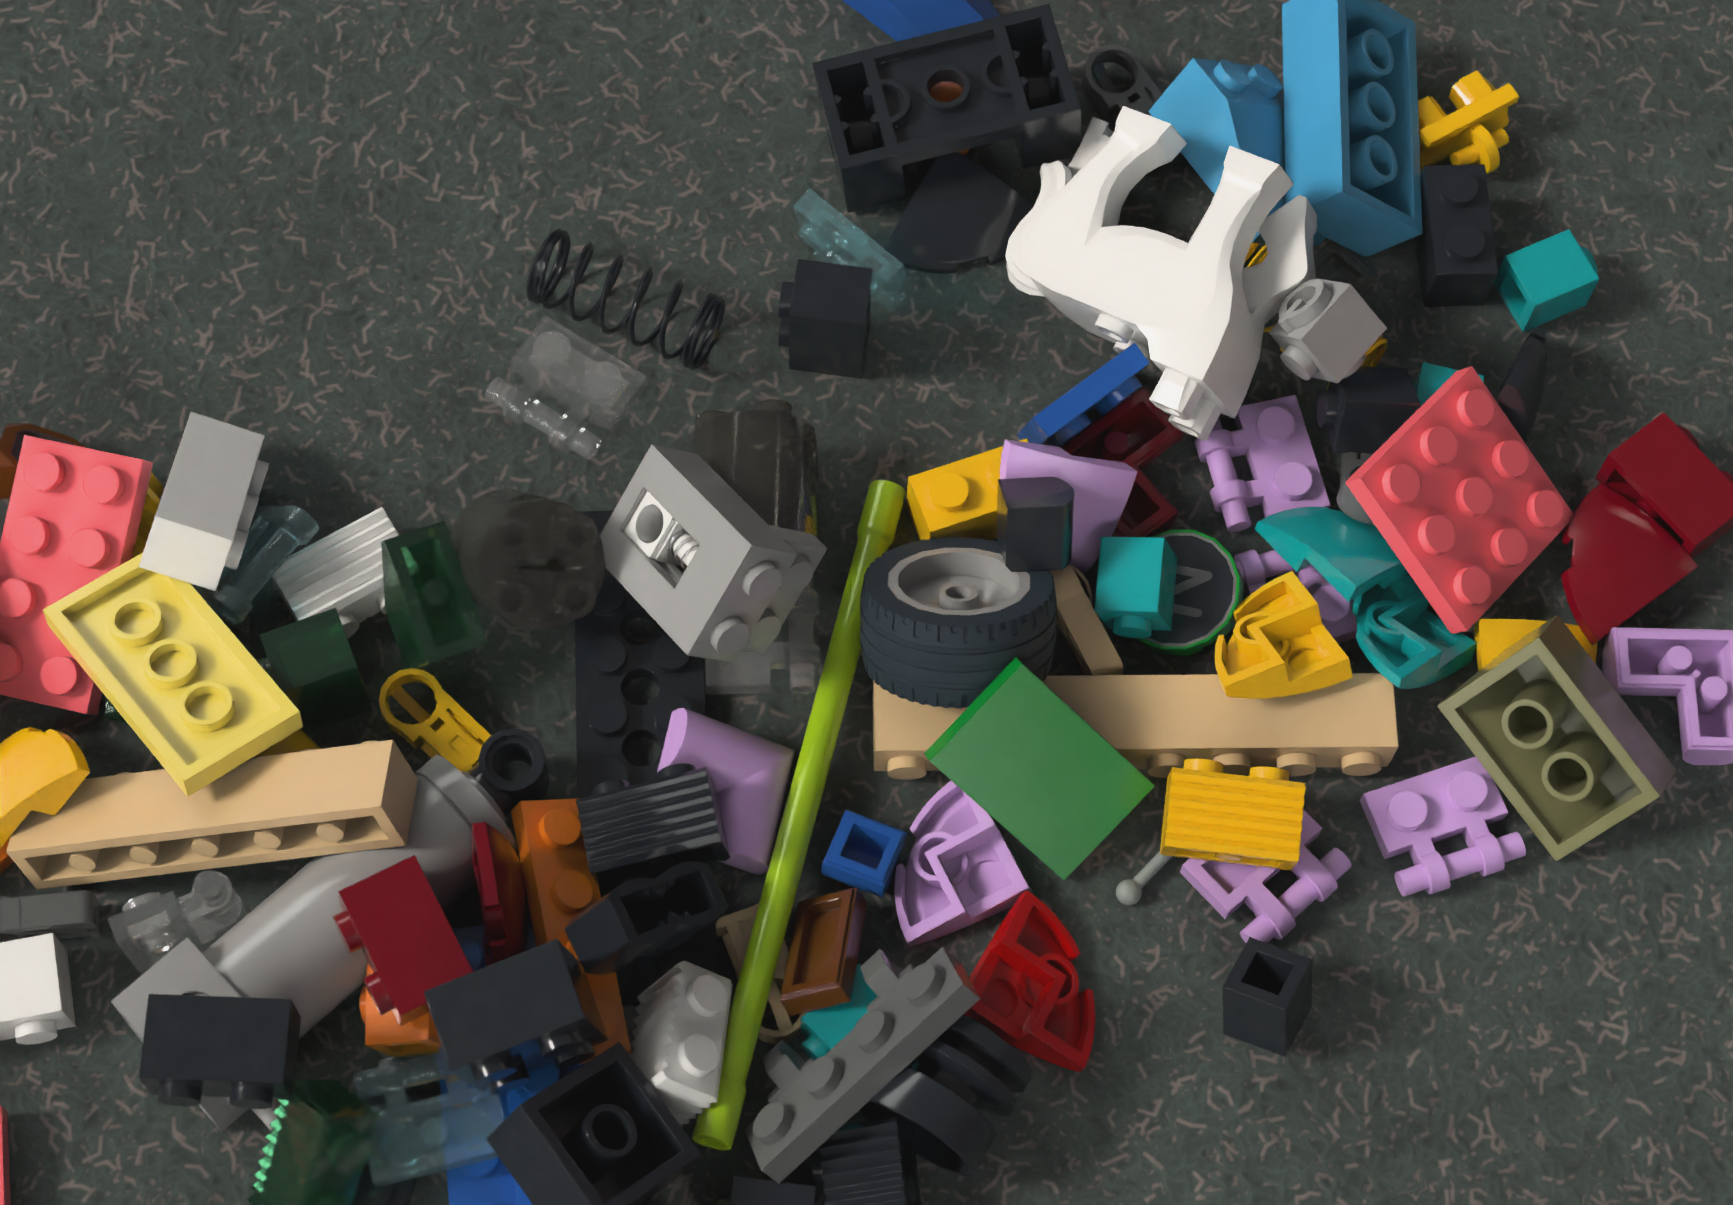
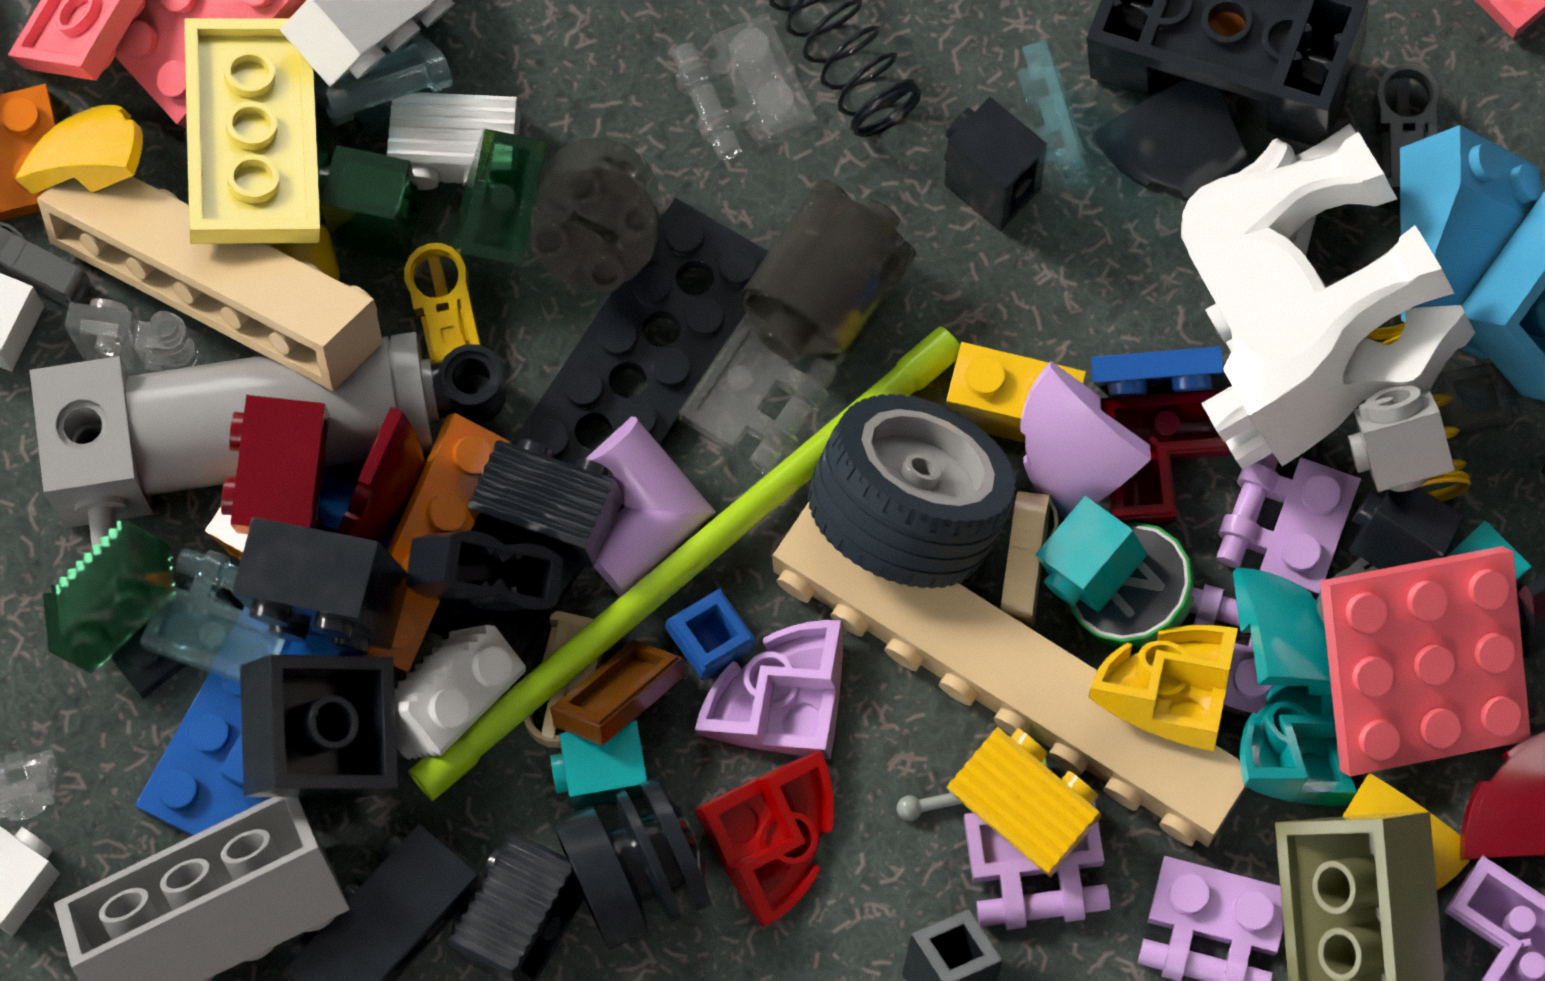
camera: 40 degrees right, 5 degrees up
(220, 1049) = (80, 461): black brick -> none
(705, 558) = (730, 306): light grey brick -> none
(824, 1093) = (534, 805): dark grey hinge -> none
(1035, 523) = (1028, 449): black piece -> none
(1039, 769) = (892, 657): green tile -> none

